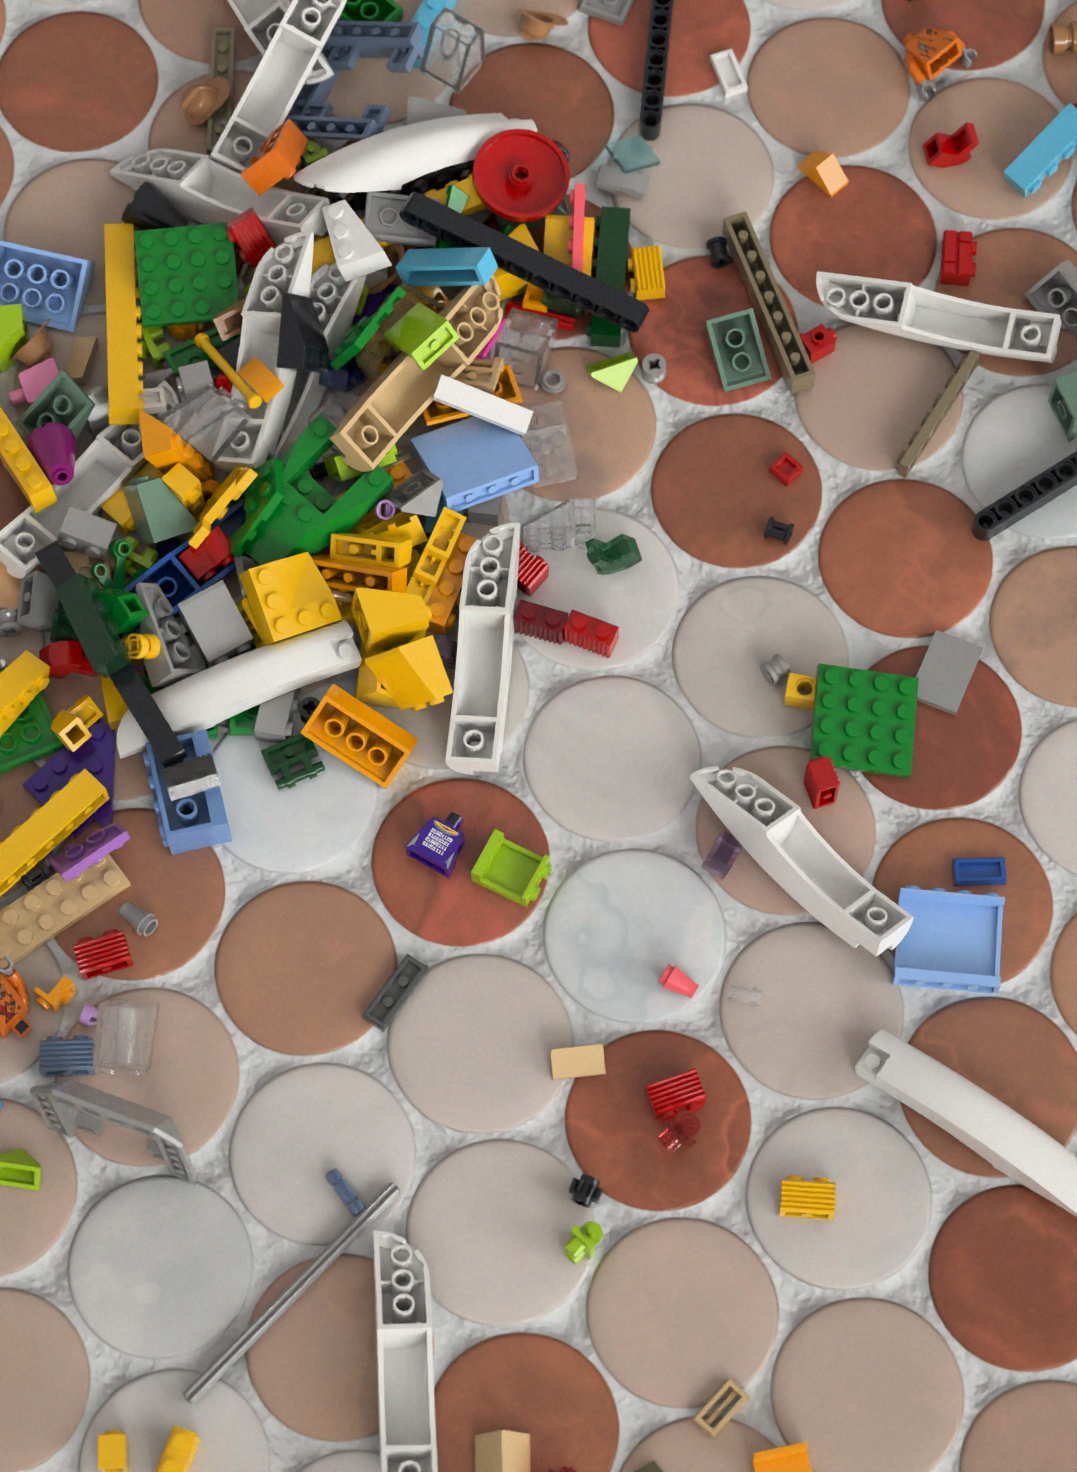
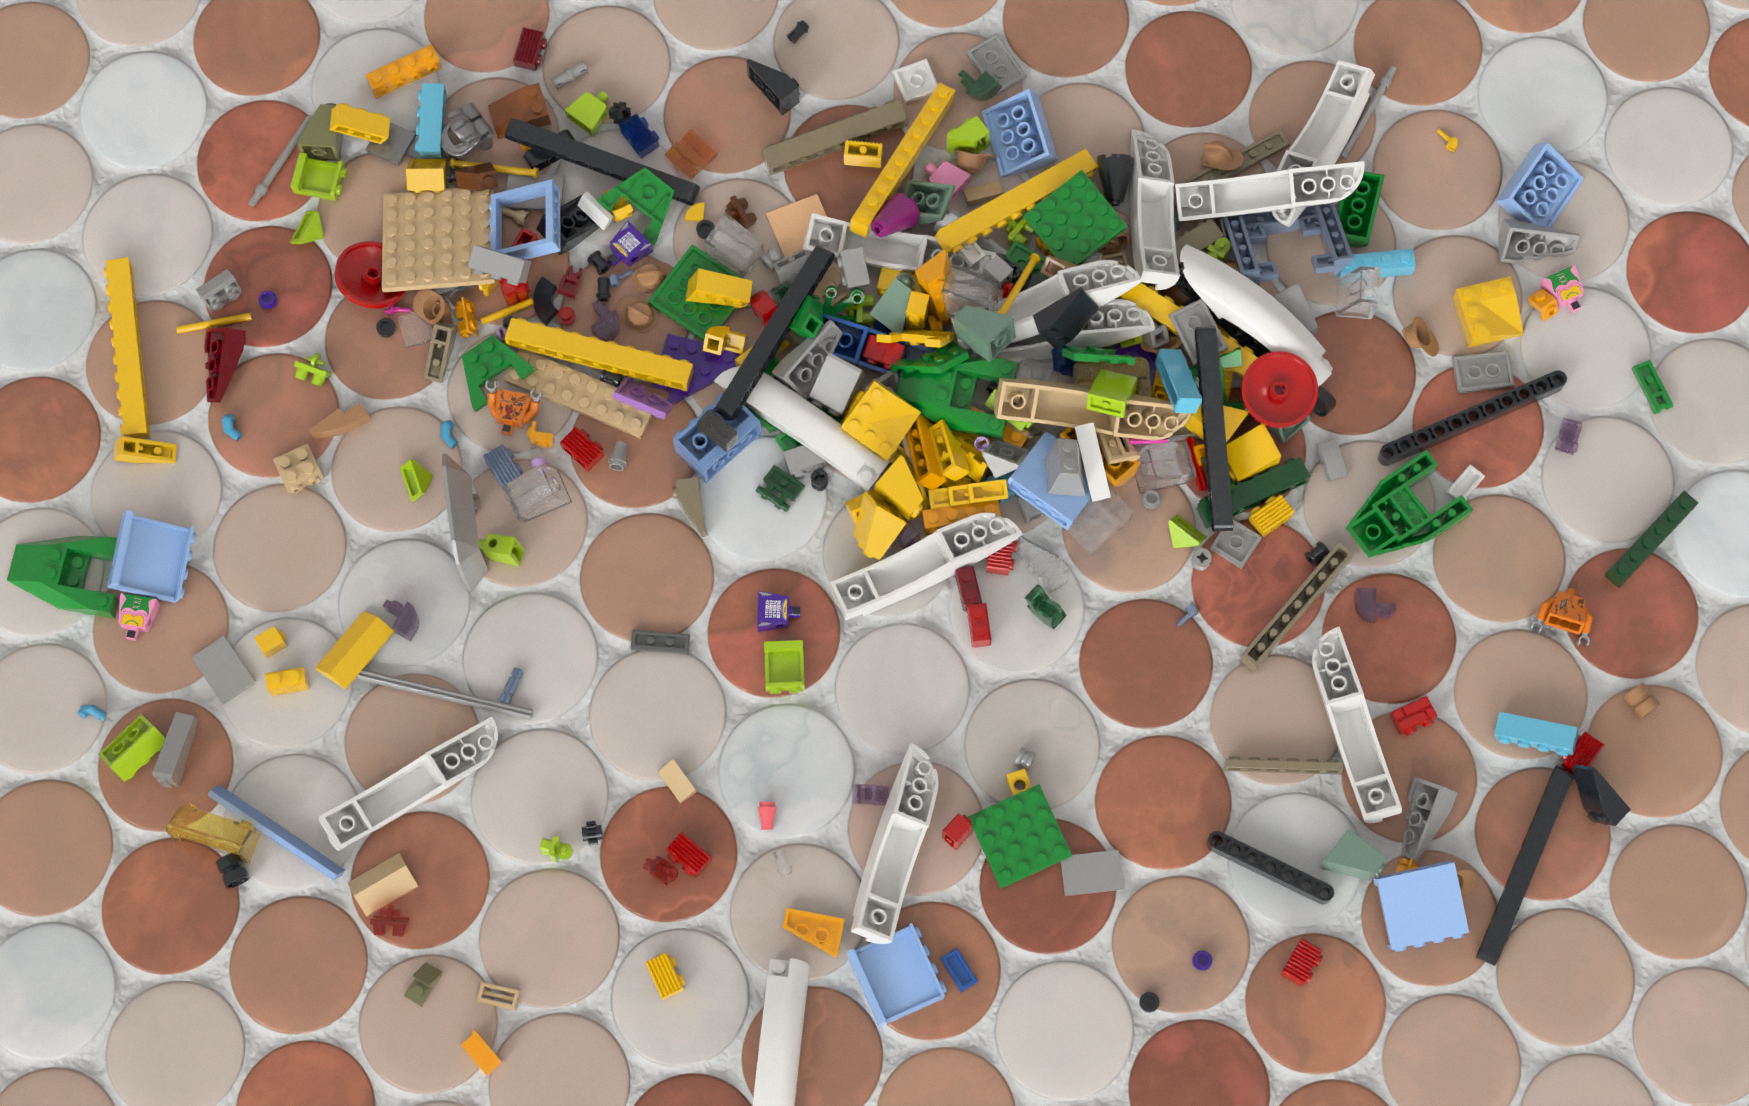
camera: 60 degrees right, 5 degrees up
(93, 625) = (781, 309): clear green brick -> none
(143, 646) = (790, 348): yellow wheel -> none
(175, 1103) = (502, 549): none -> lime torso
(184, 1268) = (407, 621): none -> clear purple brick
(186, 1354) = (354, 649): none -> yellow slope
(247, 866) = (689, 499): none -> dark tan slope
(250, 235) = (1123, 244): red brick -> none
(261, 379) = (1020, 309): light orange slope -> none
(263, 424) = (984, 330): none -> sand green slope
(278, 158) = (1196, 227): orange wedge -> none
(352, 243) = (1155, 309): white wedge -> none
(359, 736) = (817, 519): light orange slope -> none
(474, 435) = (1065, 469): none -> light grey slope
(576, 222) = (1266, 447): coral plate -> none
(632, 154) = (1357, 455): clear light blue piece -> none
(659, 328) = (1236, 545): none -> light grey tile
(706, 409) = (1192, 612): none -> sand blue hand
(727, 152) = (1395, 516): none -> green wedge
(737, 349) = (1249, 605): sand green slope -> none
(778, 530) = (1132, 713): black bush -> none
(786, 469) = (1180, 687): red tile -> none
(807, 235) = (1368, 608): none -> brick
(817, 348) = (1288, 663): red brick -> none
(824, 172) = (1426, 590): light orange slope -> none
(845, 1000) = (816, 929): none -> light orange wing
(951, 150) = (1497, 666): red brick -> none

